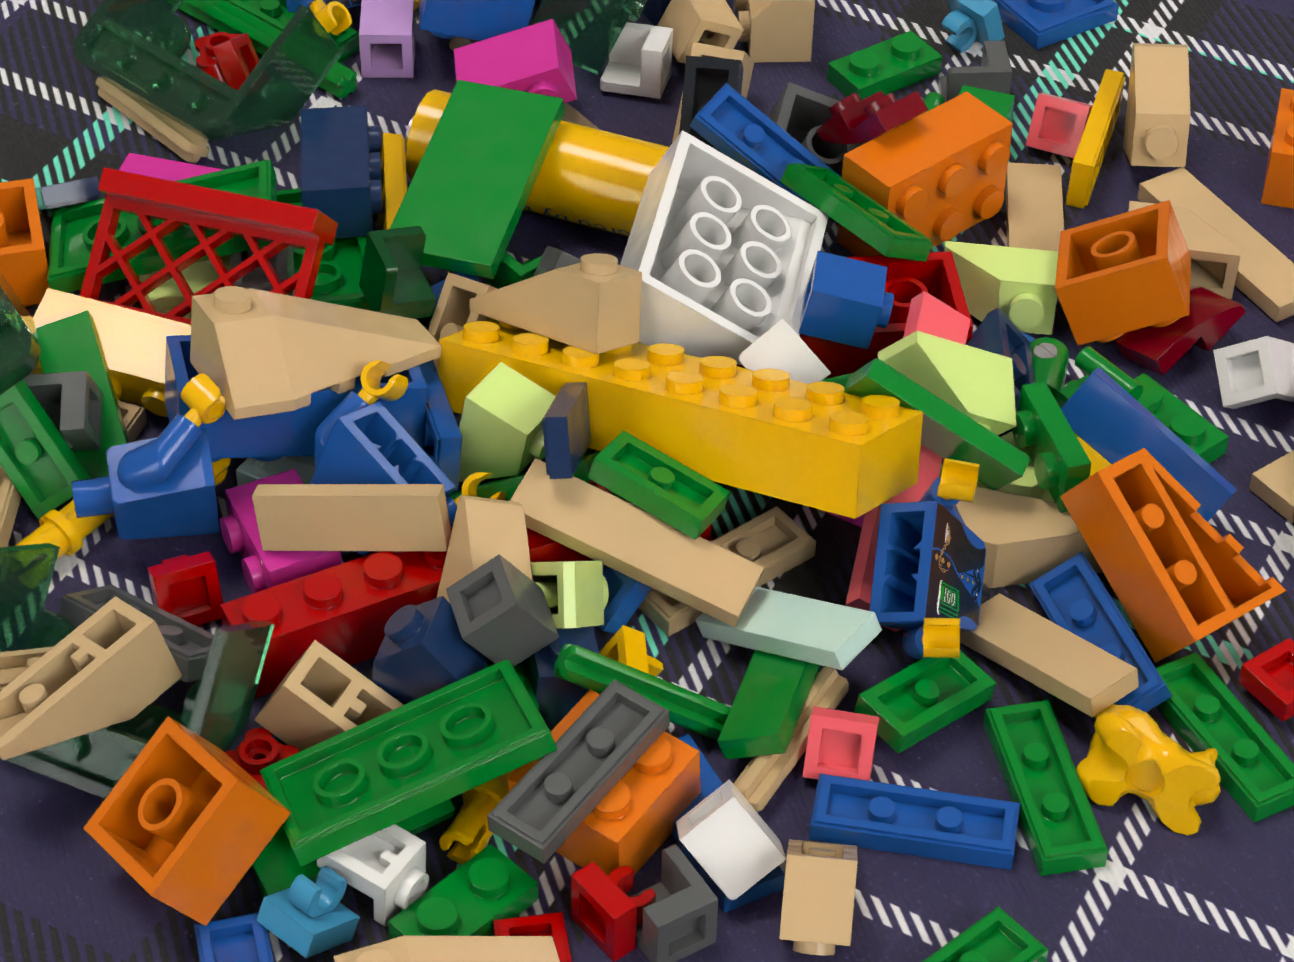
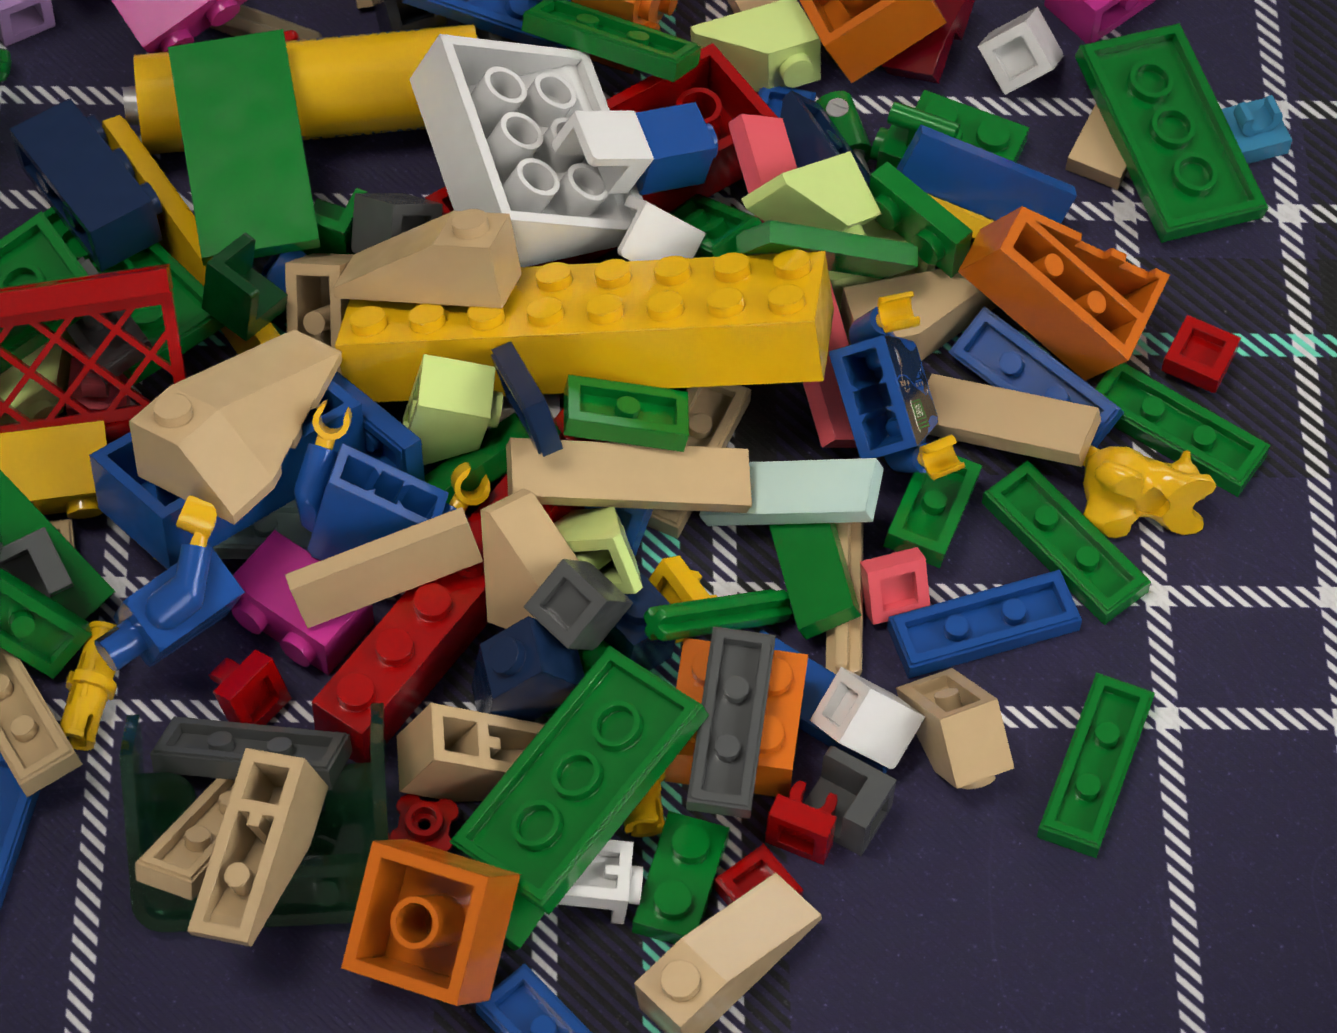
camera: 30 degrees left, 15 degrees up
(310, 913) = (567, 948): dark azure tile -> none
(782, 260) = (607, 141): none -> white panel

